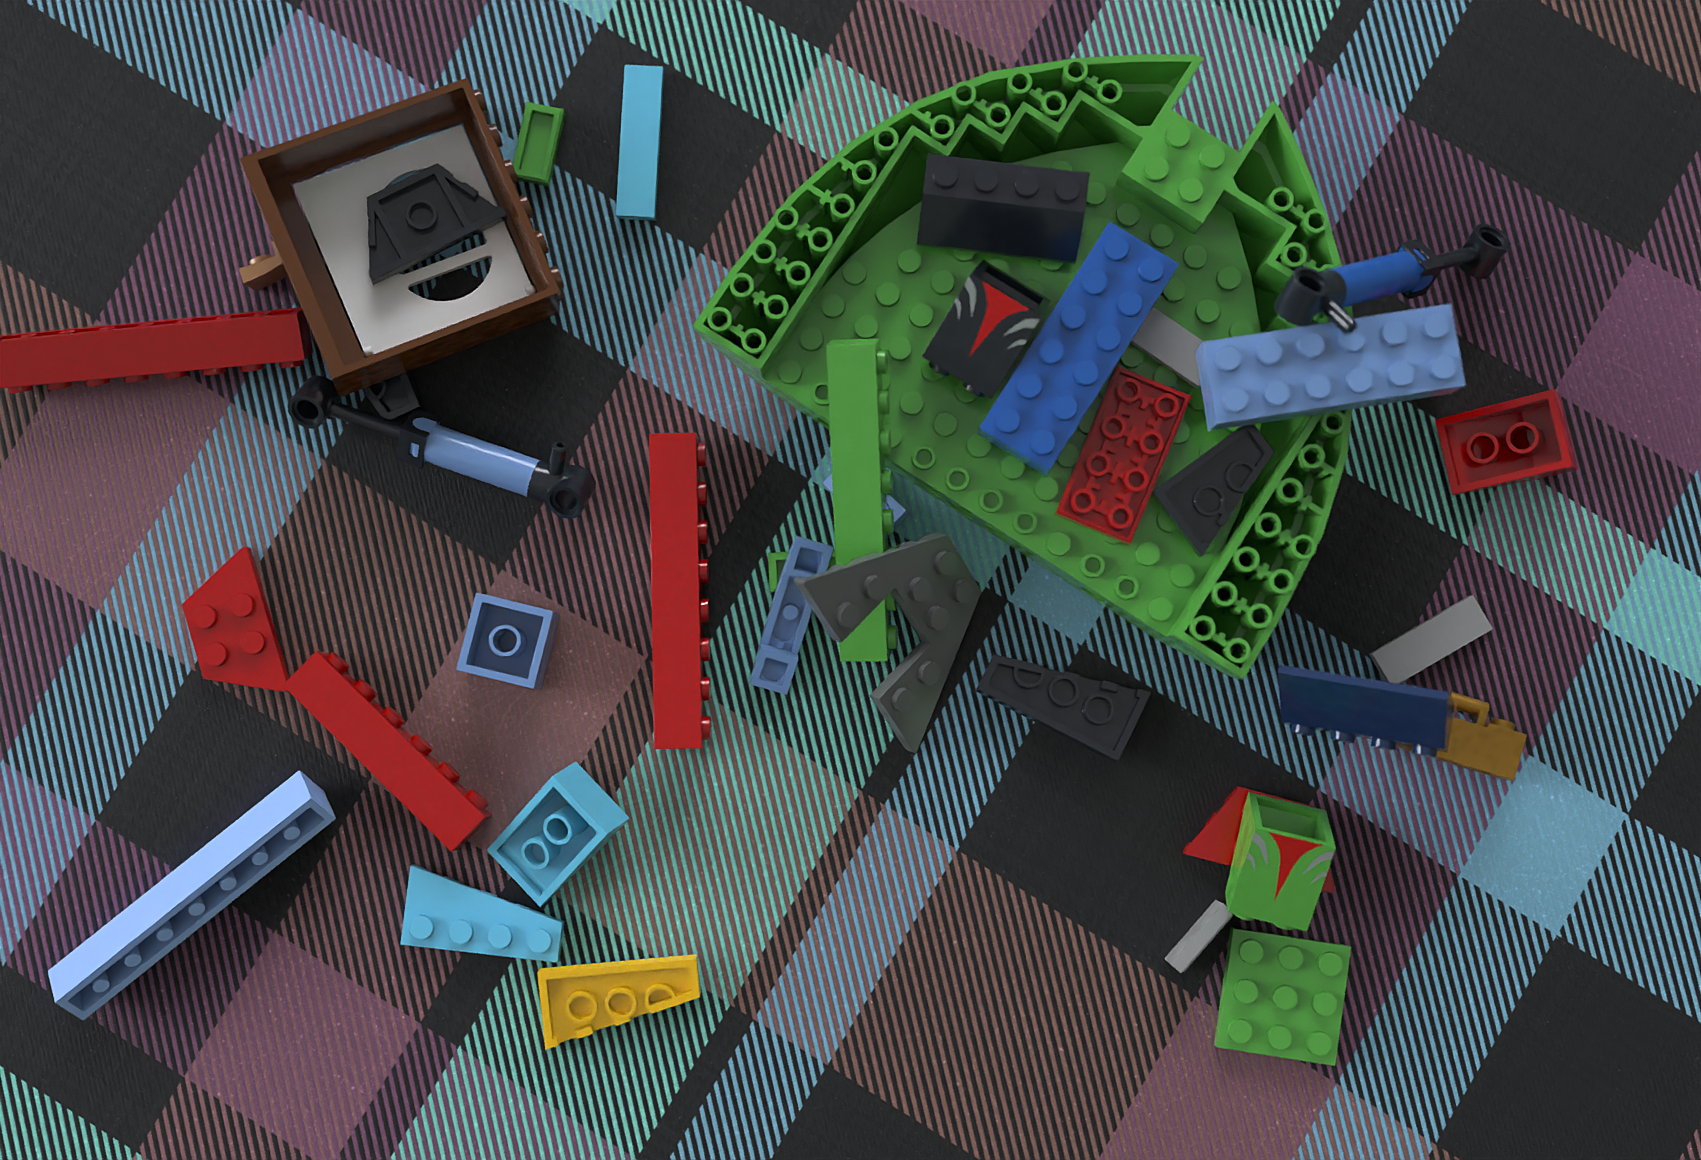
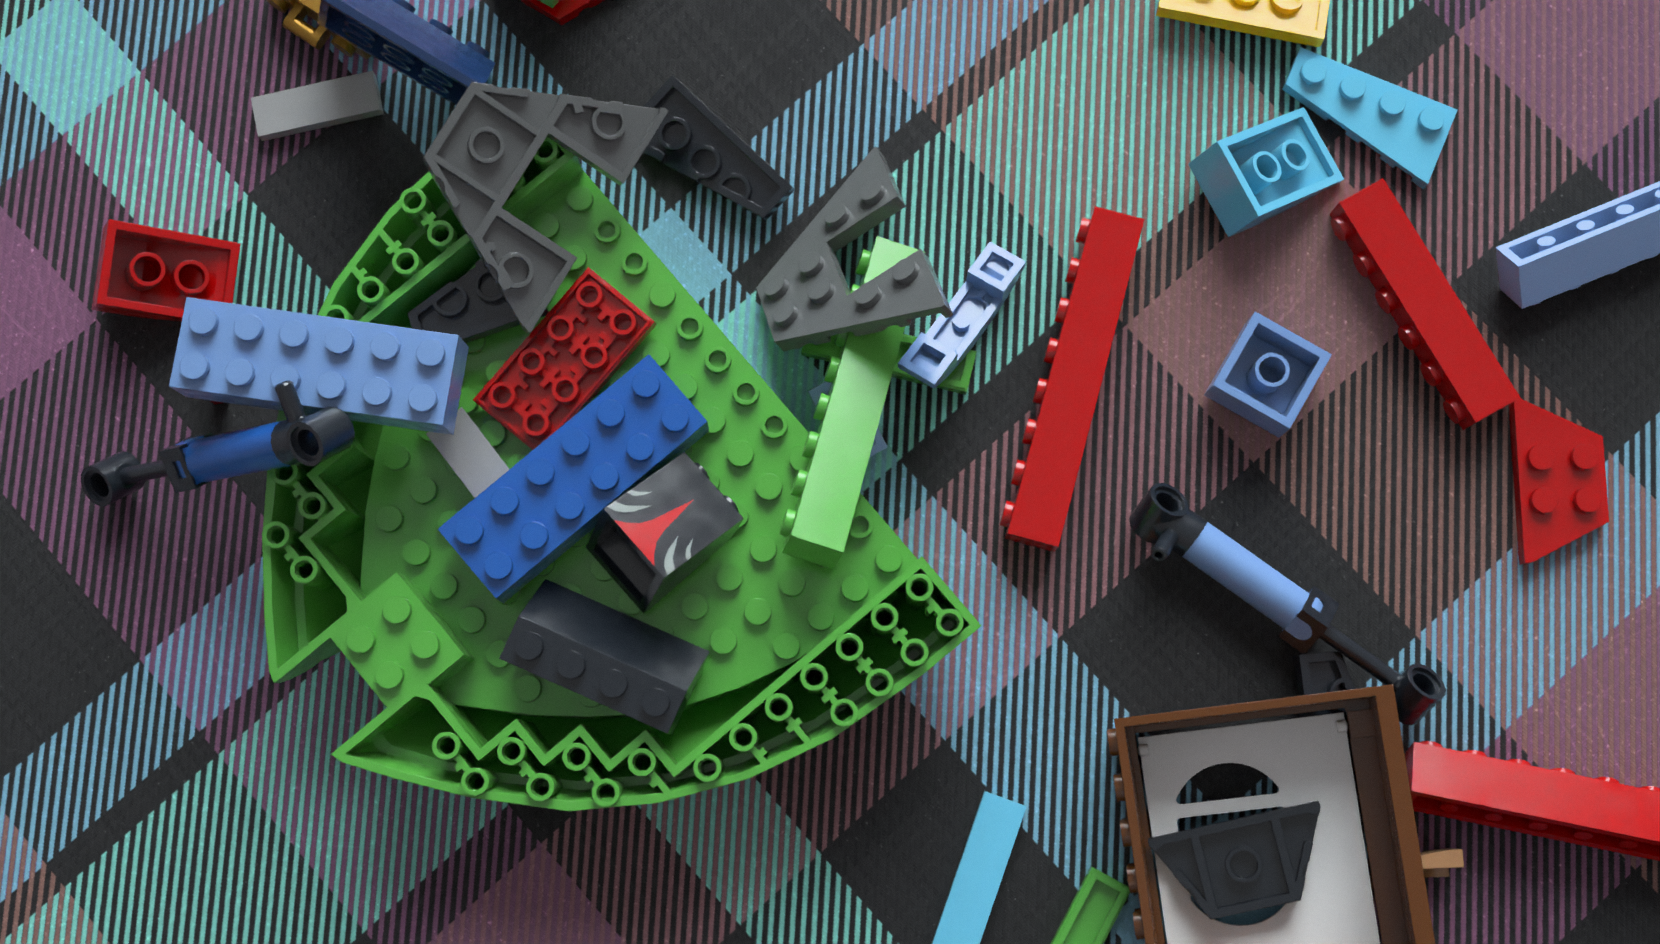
camera: 160 degrees left, 5 degrees down
(1250, 604) = (488, 150): none -> dark grey wing

